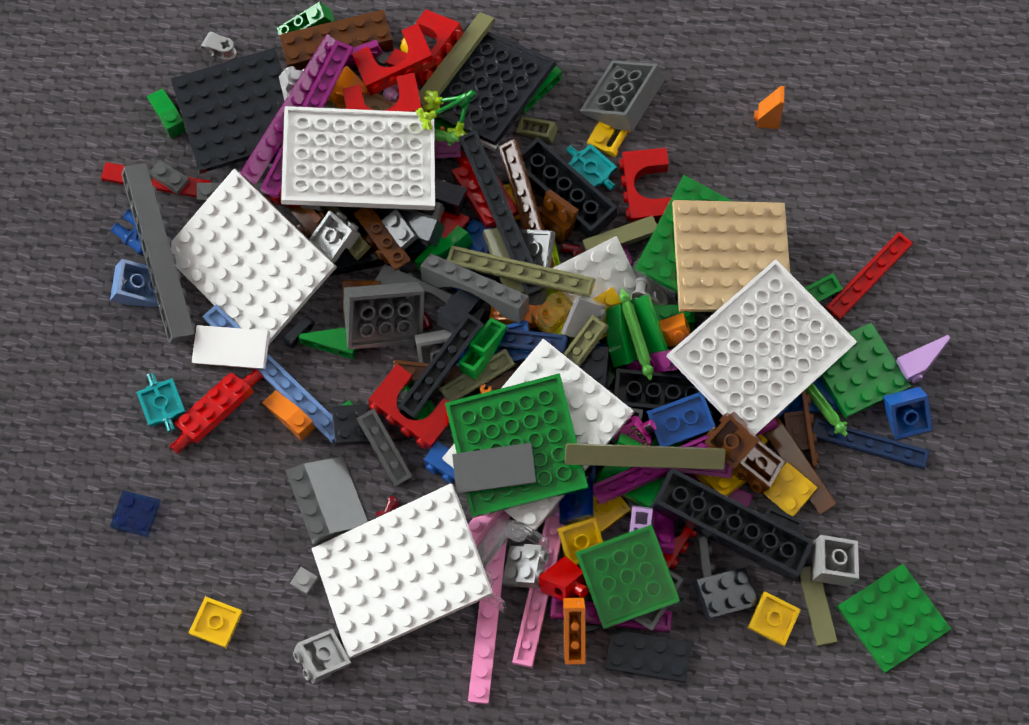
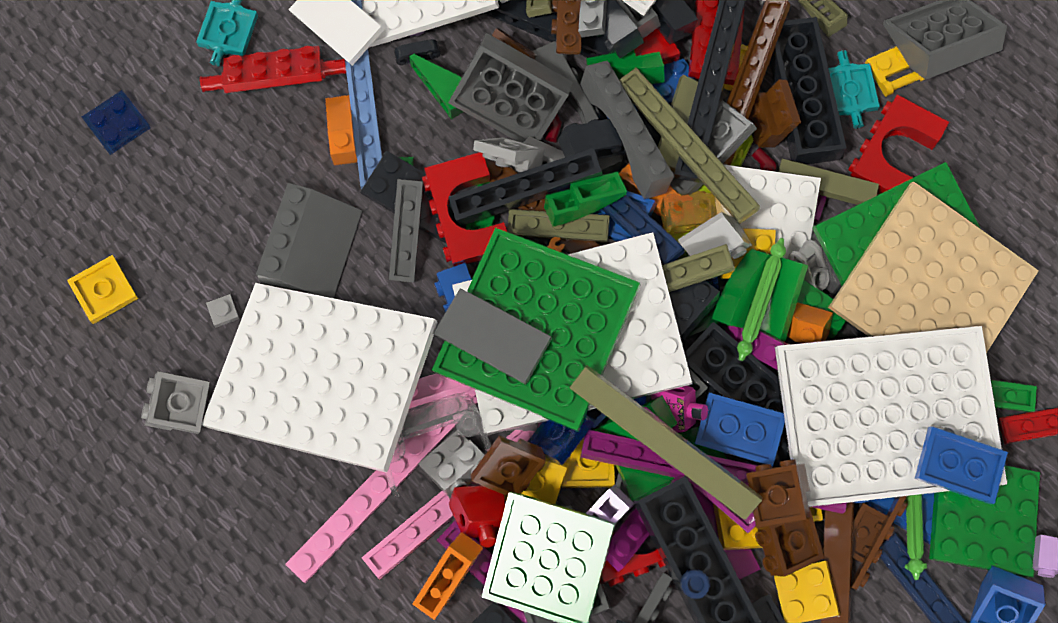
camera: 30 degrees right, 5 degrees up
(392, 504) = (369, 298): dark red arm -> none
(416, 351) = (510, 152): none -> light grey plate
(562, 539) = (509, 466): none -> reddish brown plate
(722, 526) = (694, 584): none -> dark blue tile
(823, 348) = (961, 465): none -> blue plate

